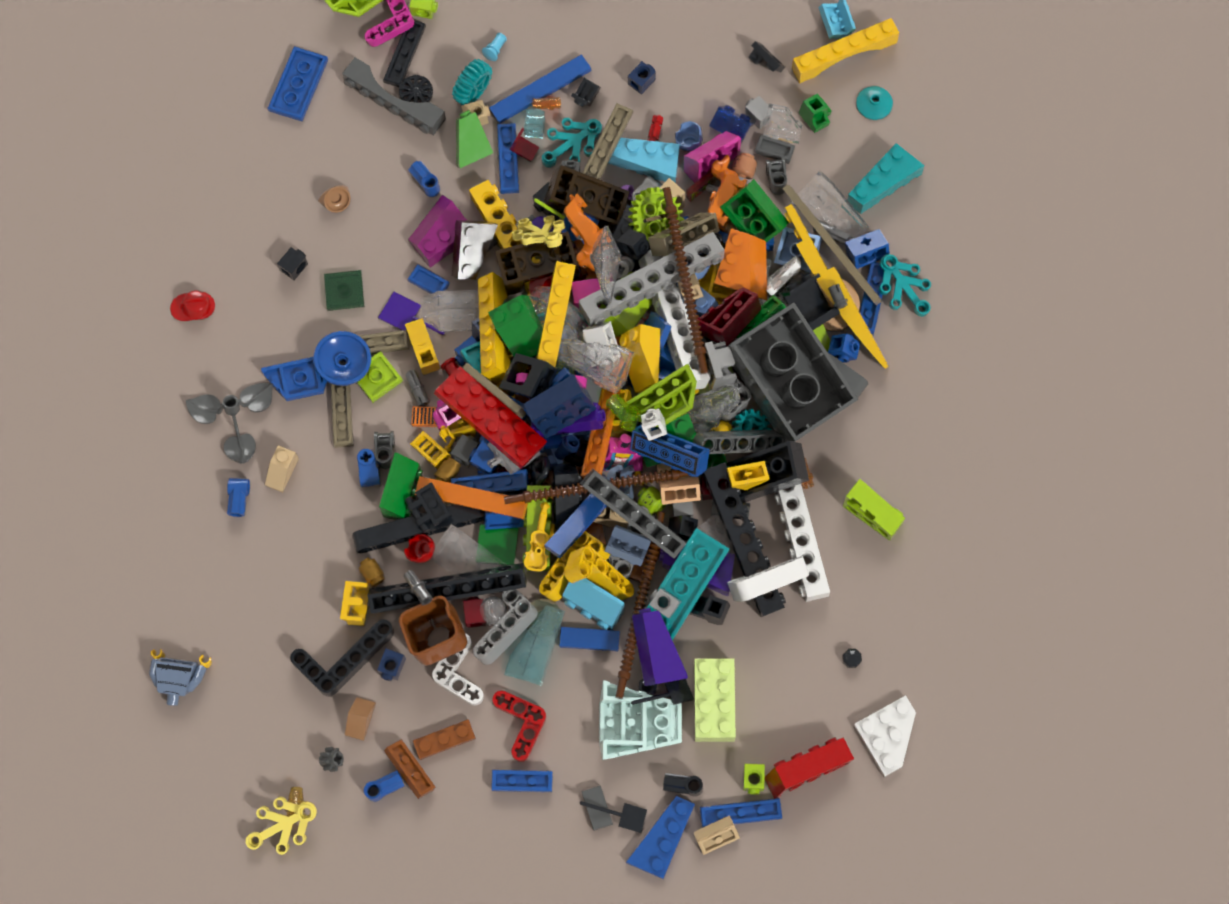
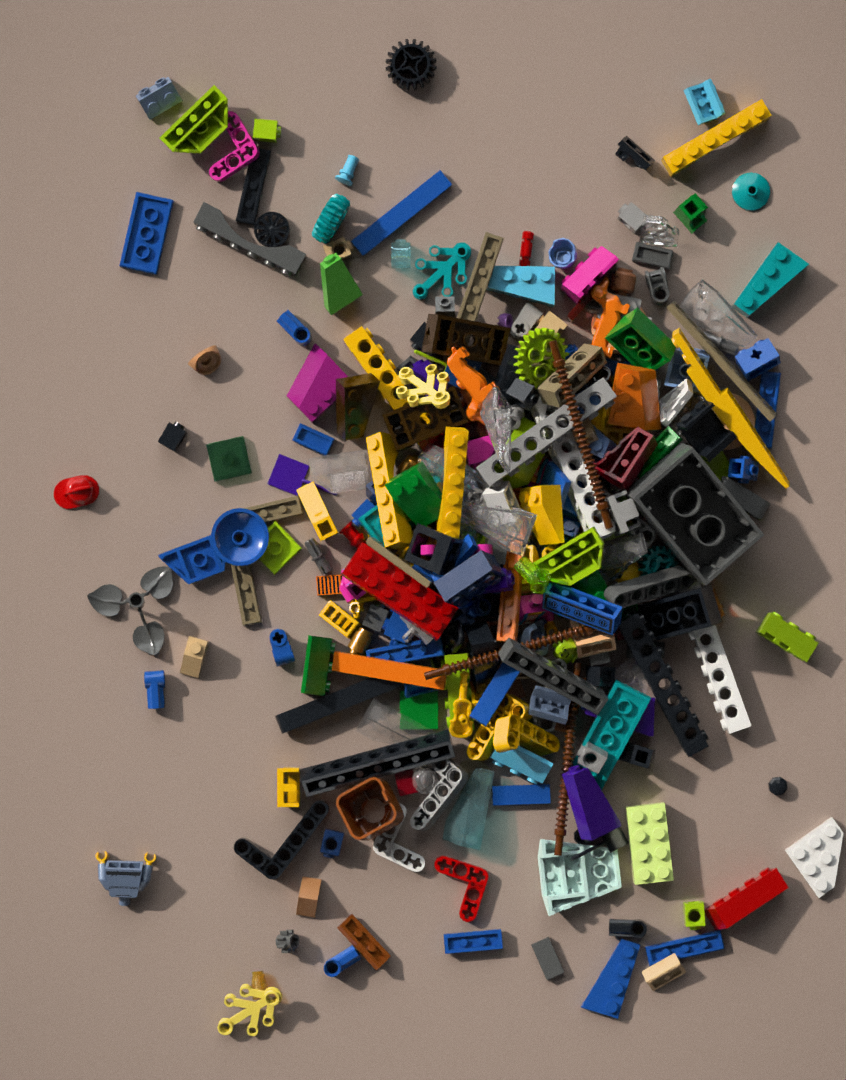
camera: 10 degrees left, 15 degrees up
(371, 572) = (299, 751): pearl gold brick -> none
(384, 445) = (294, 622): dark grey piece -> none
(418, 587) = (350, 771): flat silver axle -> none
(420, 548) = (344, 724): red hair -> none
(432, 503) = (352, 681): black plate -> none
(444, 739) = (392, 908): dark orange plate -> none
(507, 159) = (377, 295): blue tile -> none
(524, 147) = (393, 282): dark red bracket -> none
(546, 103) = (413, 229): clear orange pin -> none
(586, 92) = (450, 214): black bracket -> none
(631, 816) = (581, 963): black piece -> none
(638, 83) = (504, 198): dark blue brick -> none
(651, 419) = (564, 587): white brick -> none
(727, 120) = (605, 232): clear blue bracket -> none
(748, 475) = (661, 623): yellow slope -> none
(767, 580) = (675, 734): white beam -> none
(838, 297) = (733, 423): dark grey pin -> none
(903, 282) = (796, 392): teal plant -> none

